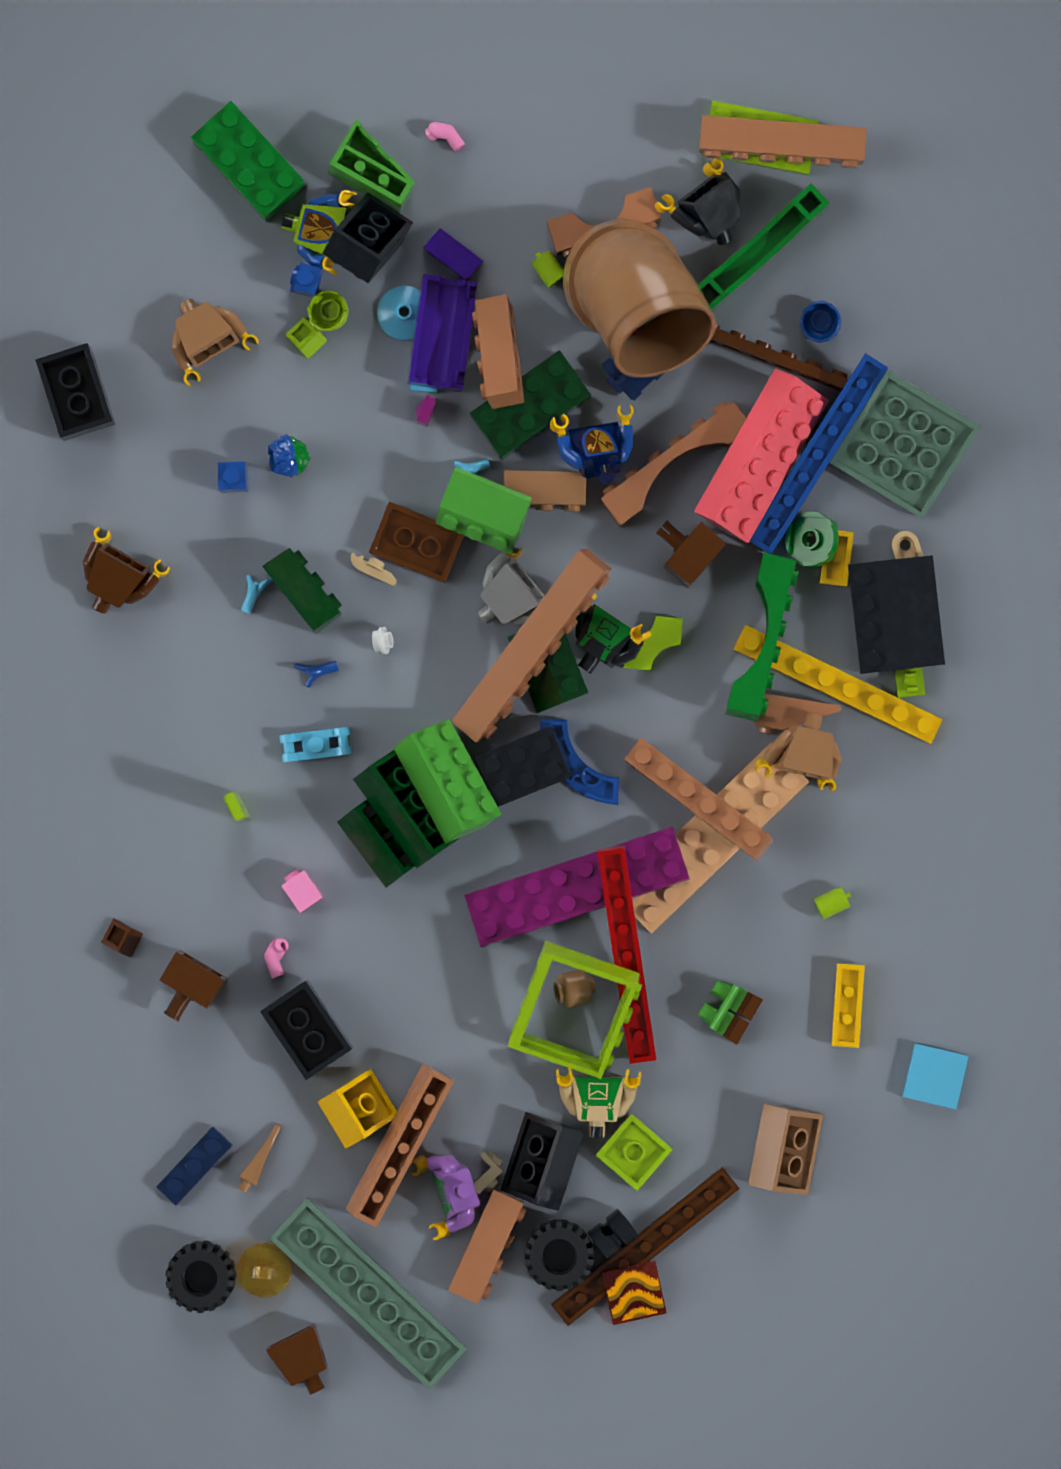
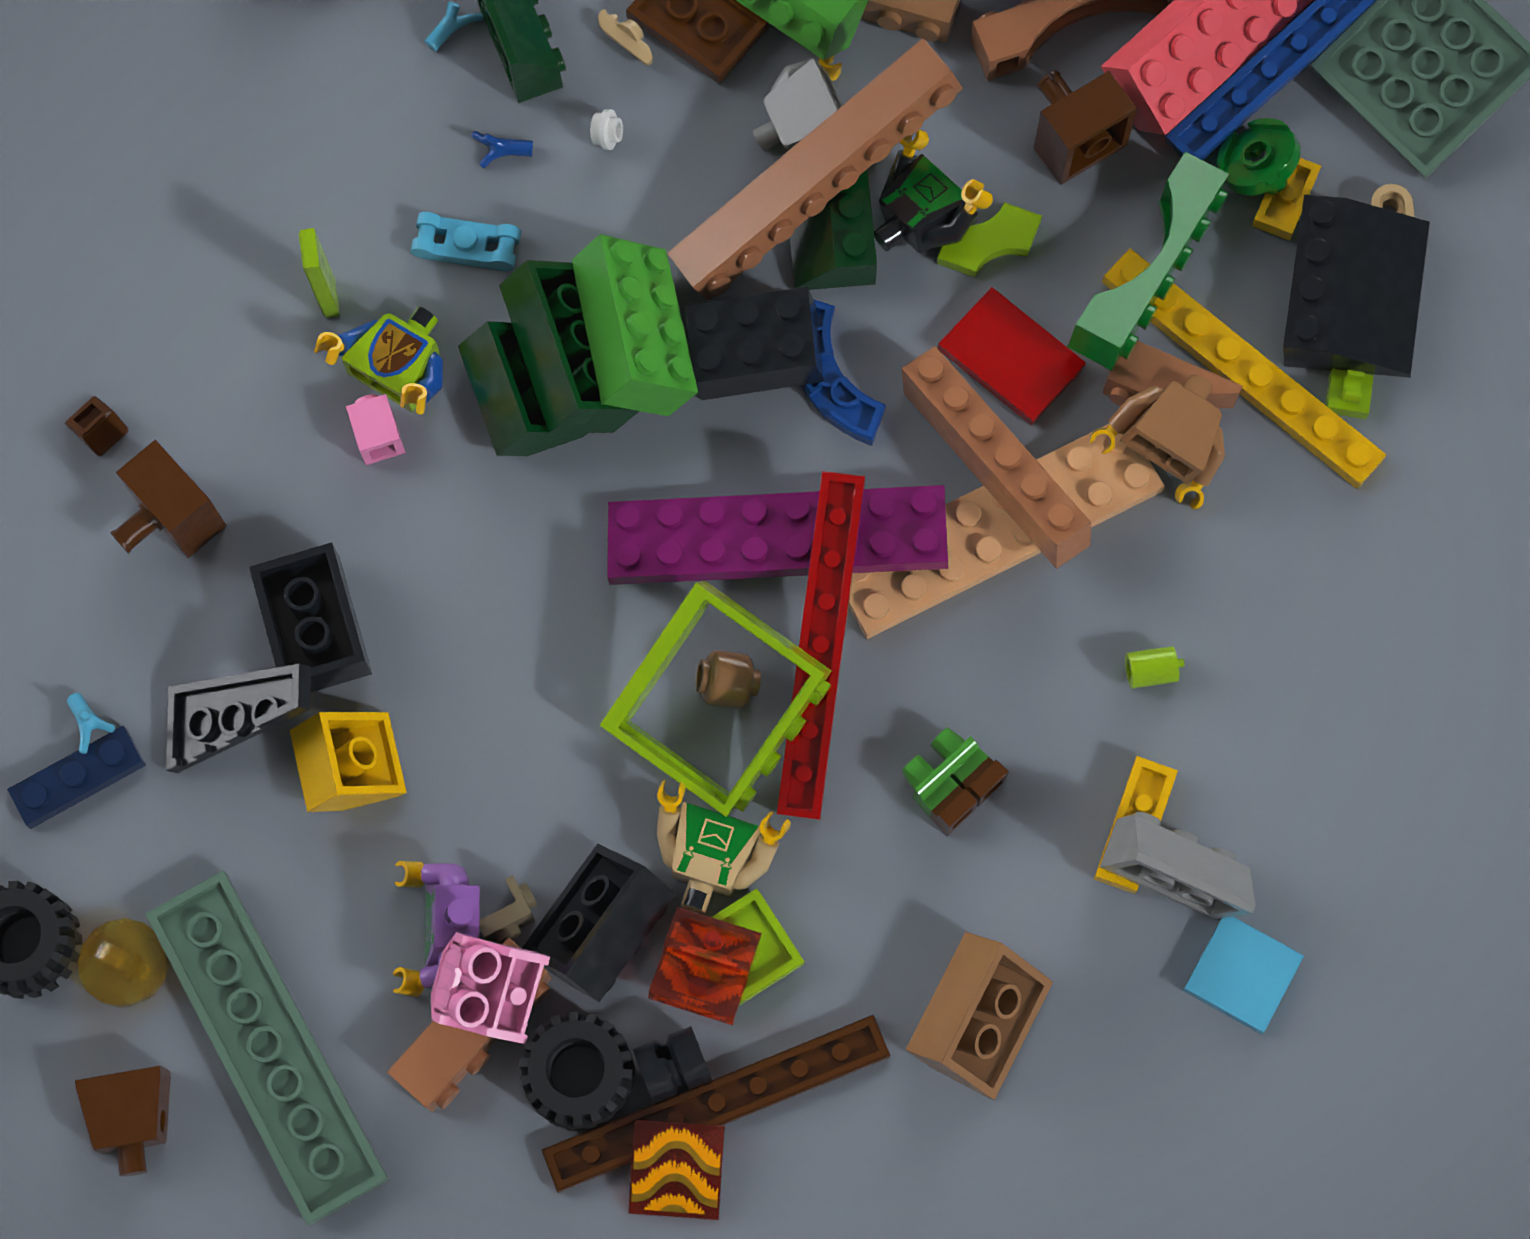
camera: 15 degrees right, 15 degrees down
(189, 1130) = (86, 720): none -> medium azure bar
(253, 1170) = (161, 808): medium nougat piece -> none
(273, 956) = (303, 510): bright pink arm -> none
(278, 1103) = (230, 709): none -> wing
(298, 841) = (391, 357): none -> torso
(399, 1145) = (389, 829): nougat brick -> none
(492, 1228) = (486, 987): none -> bright pink slope
(615, 1171) = (704, 966): none -> clear red slope
(688, 720) = (1011, 356): none -> red tile
(881, 1028) = (1179, 867): none -> light grey slope

